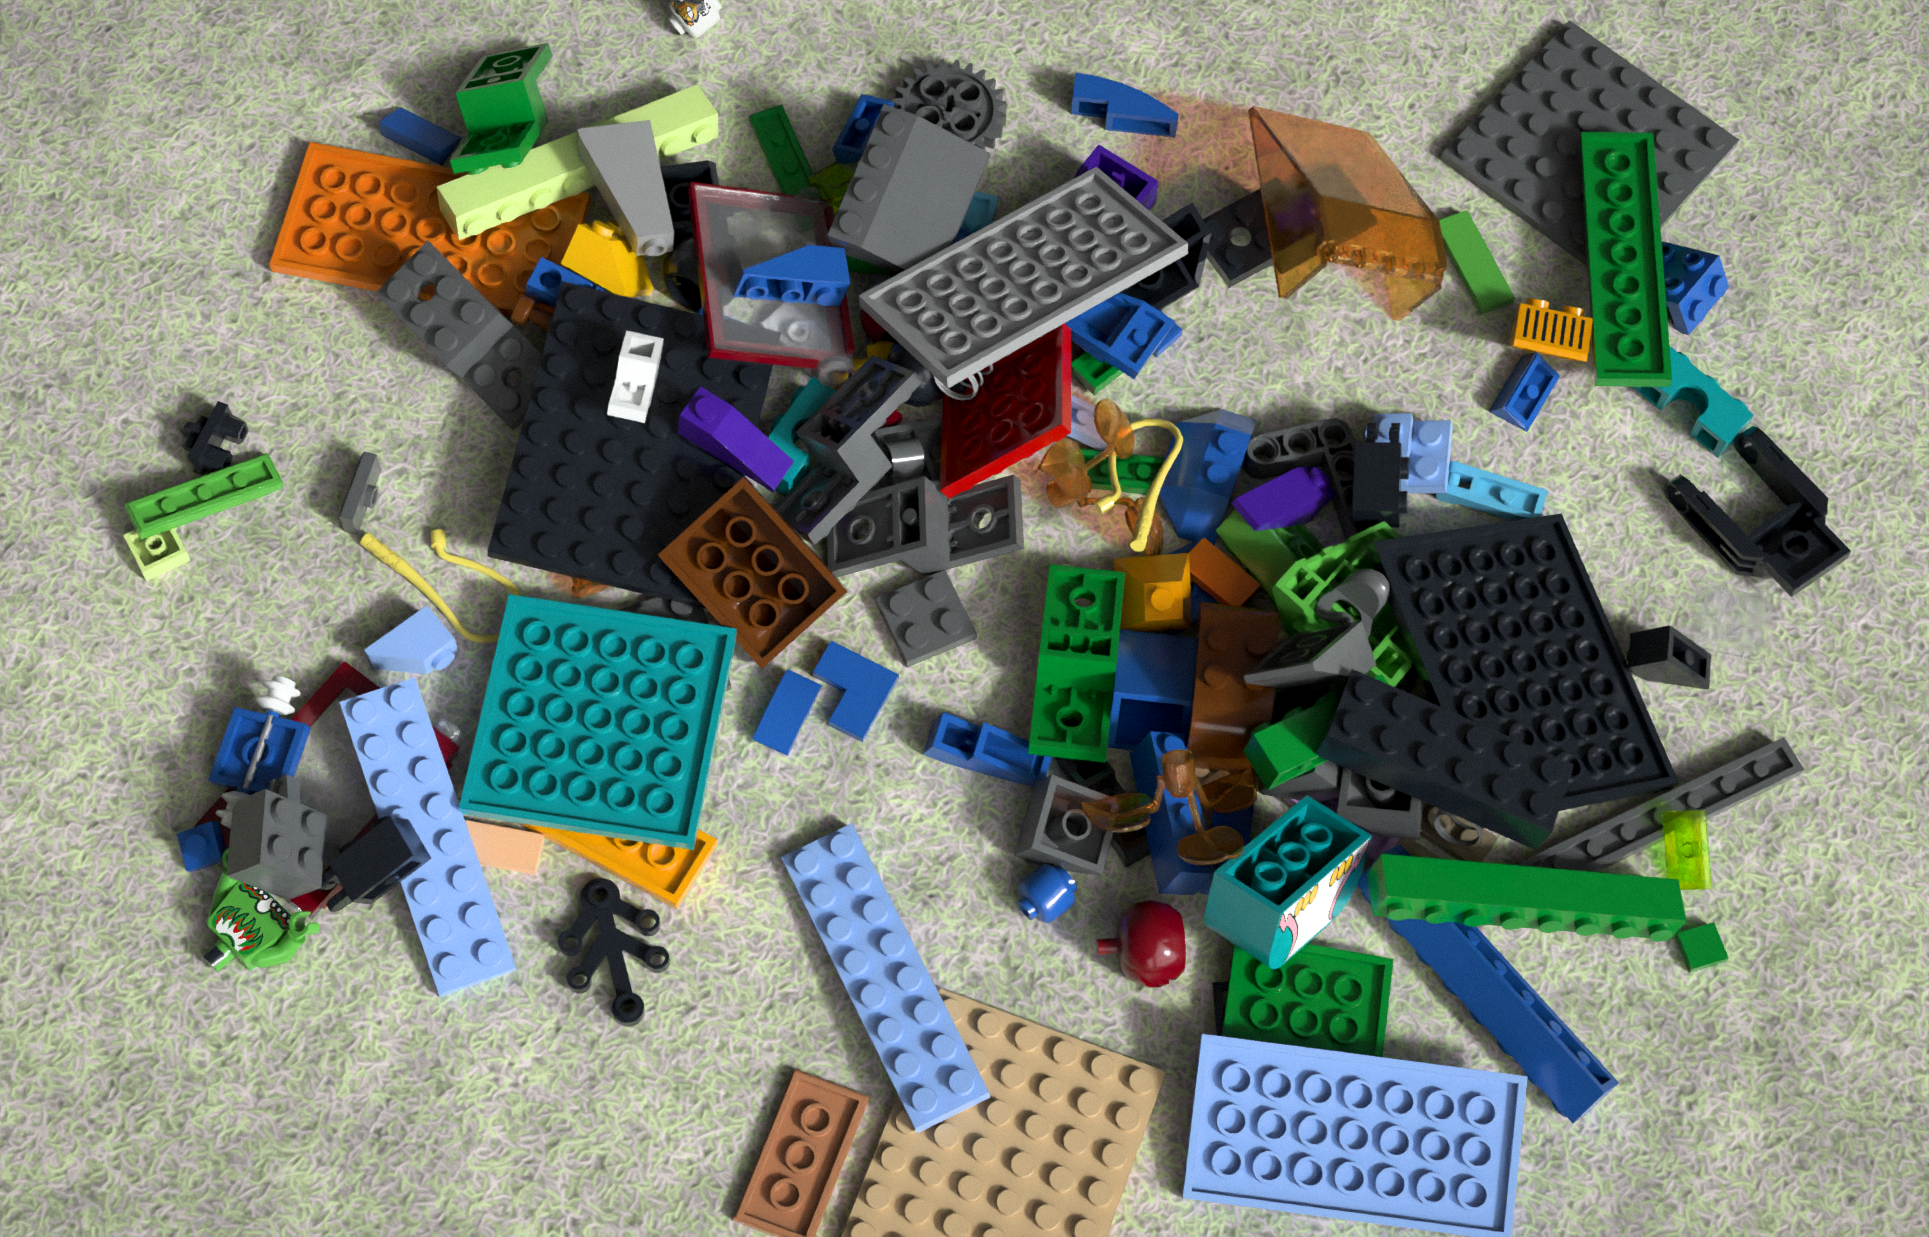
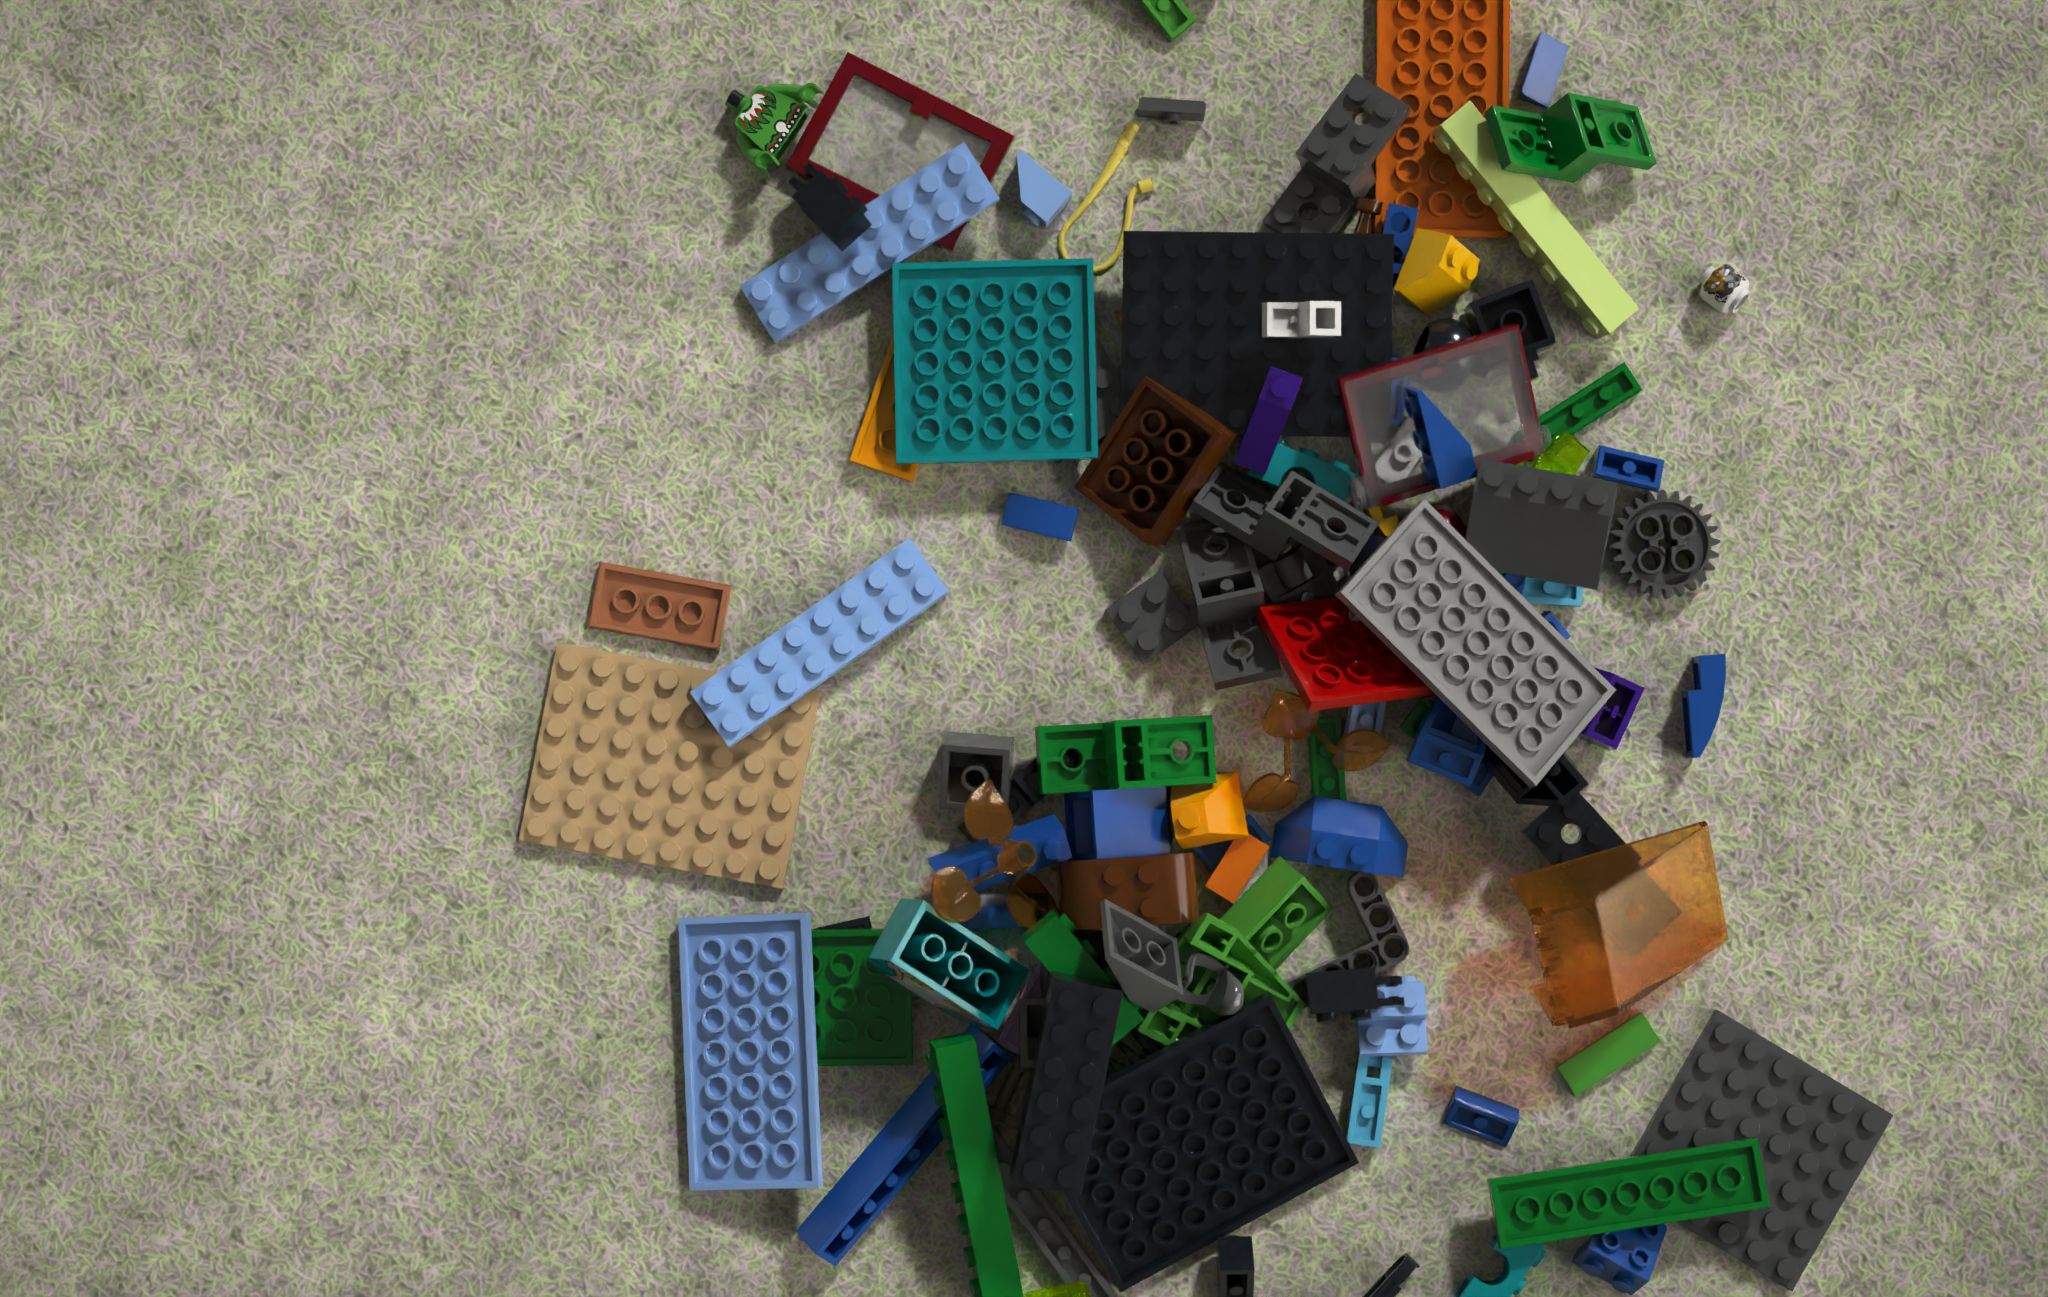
camera: 85 degrees right, 20 degrees up
(202, 846) = (829, 63): blue plate -> none
(259, 746) = (911, 88): blue plate -> none
(277, 841) = (831, 123): dark grey hinge -> none
(506, 847) = (877, 309): light nougat tile -> none
(612, 943) = (809, 415): black plant -> none
(630, 179) = (1514, 268): light grey slope -> none
(864, 688) = (1079, 577): blue tile -> none
(984, 750) = (1035, 689): blue slope -> none
(1046, 893) = (917, 764): blue head -> none
(1147, 509) = (1272, 791): light yellow piece -> none
(1148, 943) = (885, 856): dark red piece -> none
(1286, 499) = (1312, 911): dark purple slope -> none
(1551, 331) = (1535, 1133): light orange slope -> none

